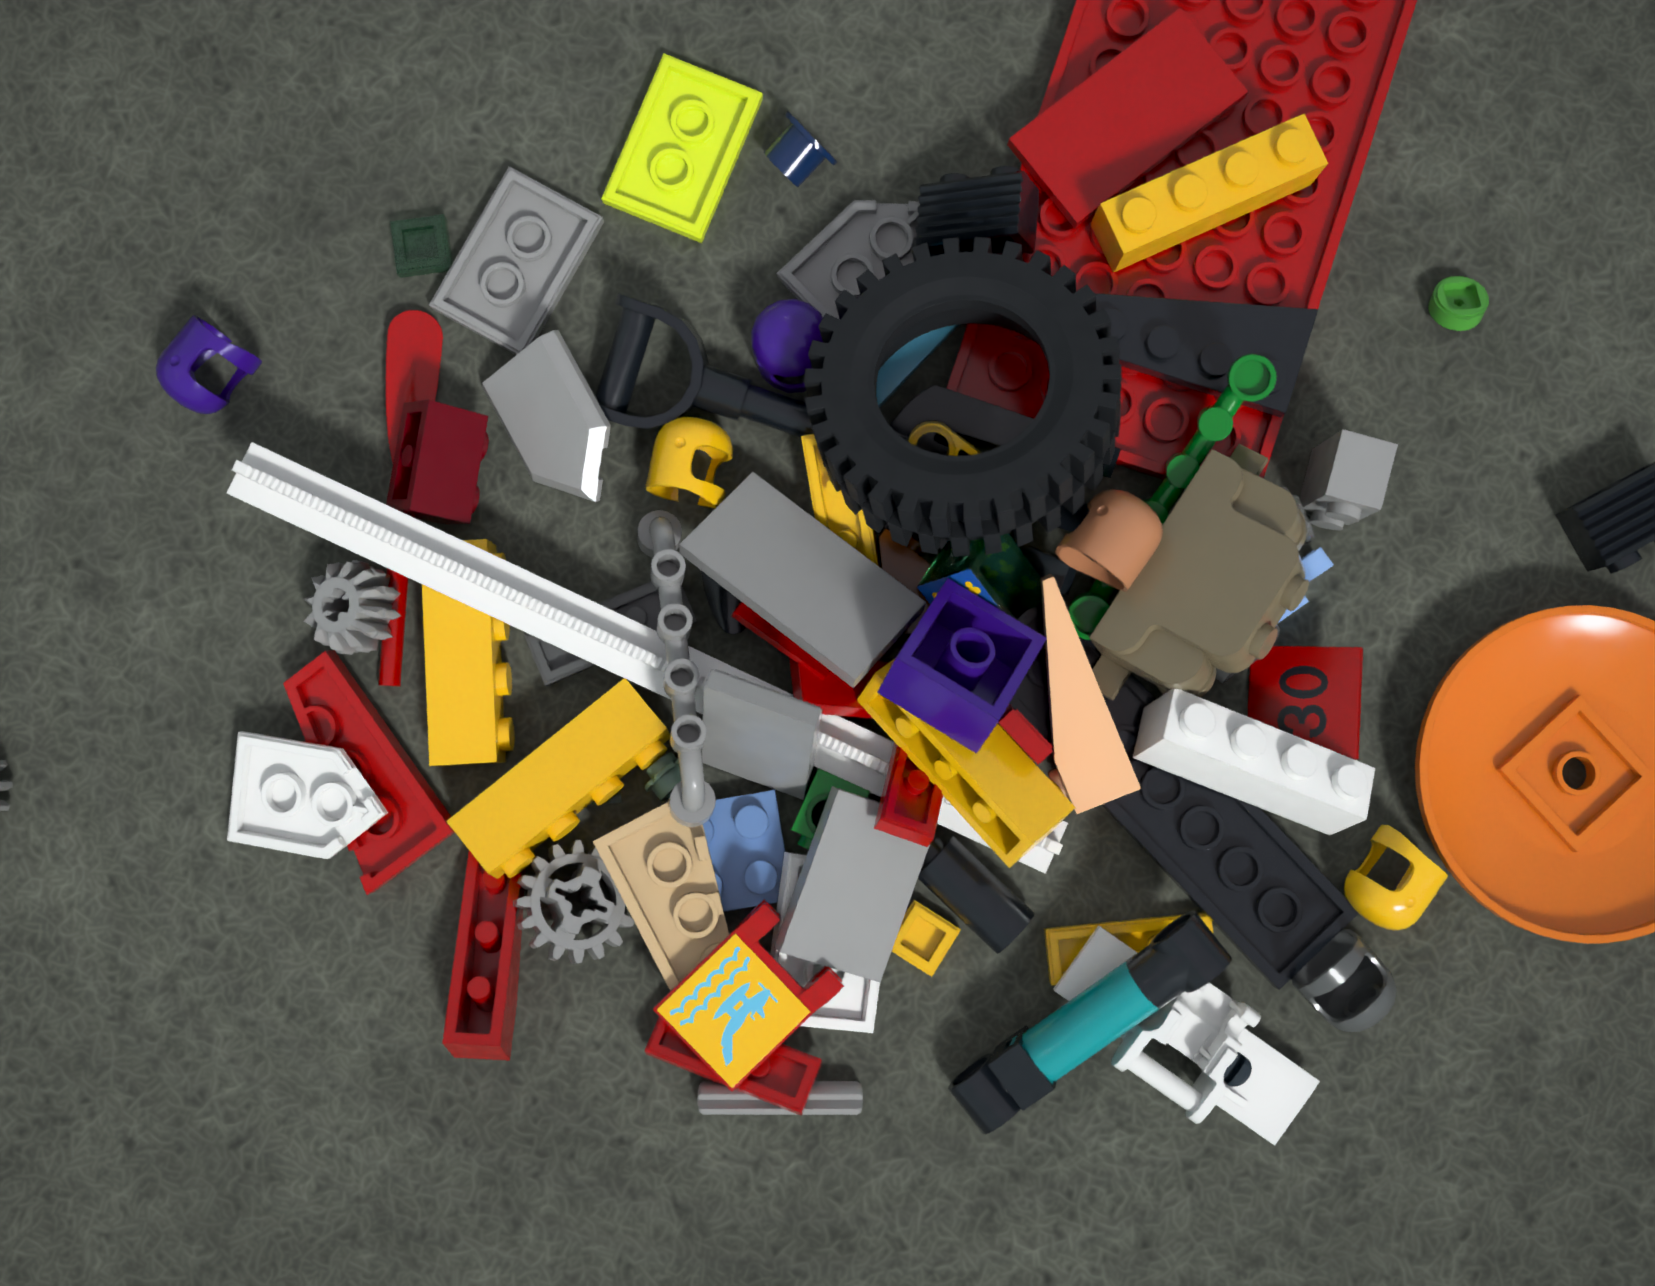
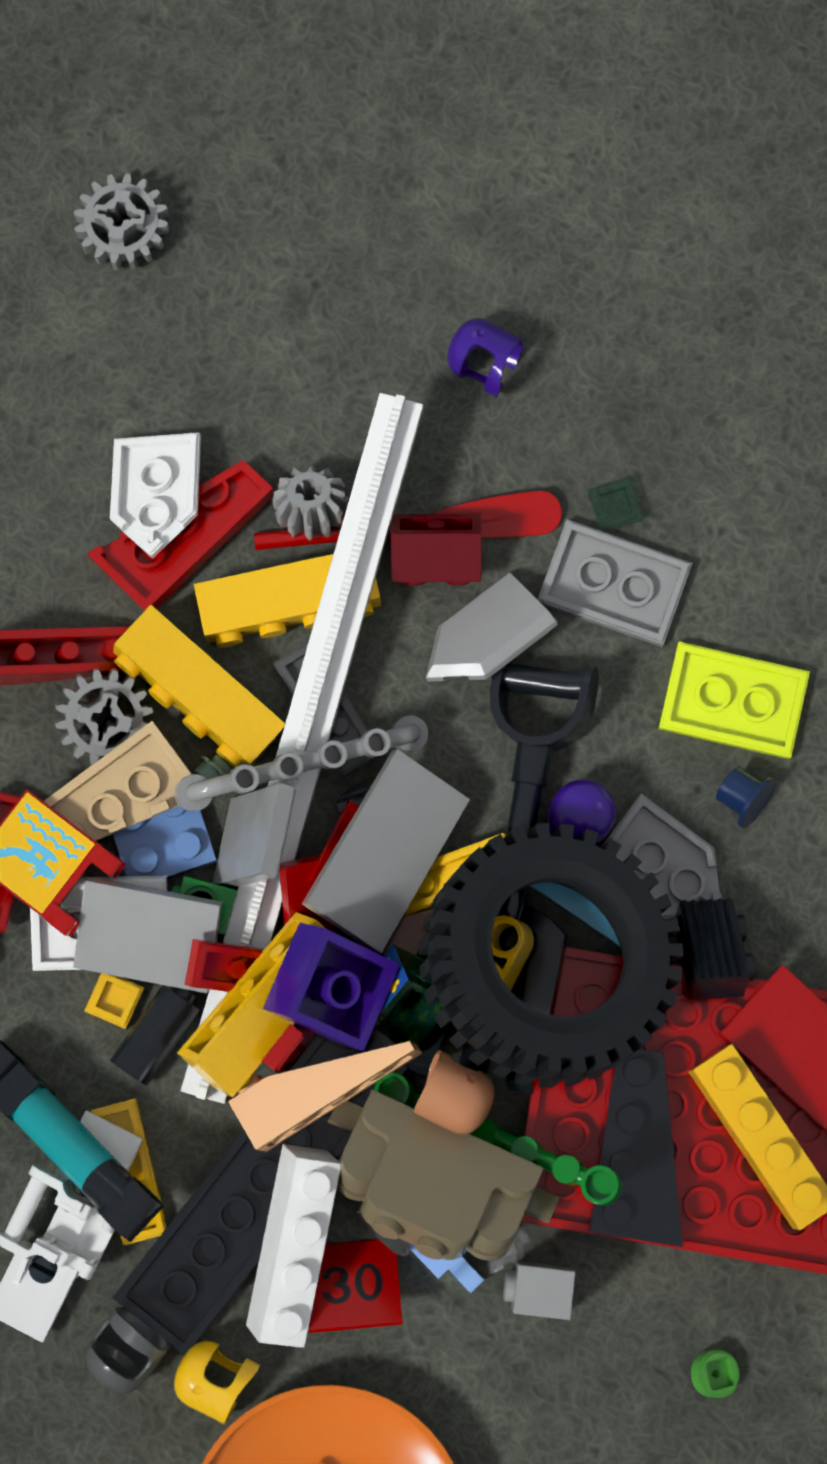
camera: 85 degrees right, 5 degrees down
(674, 455) = (472, 733): yellow helmet -> none

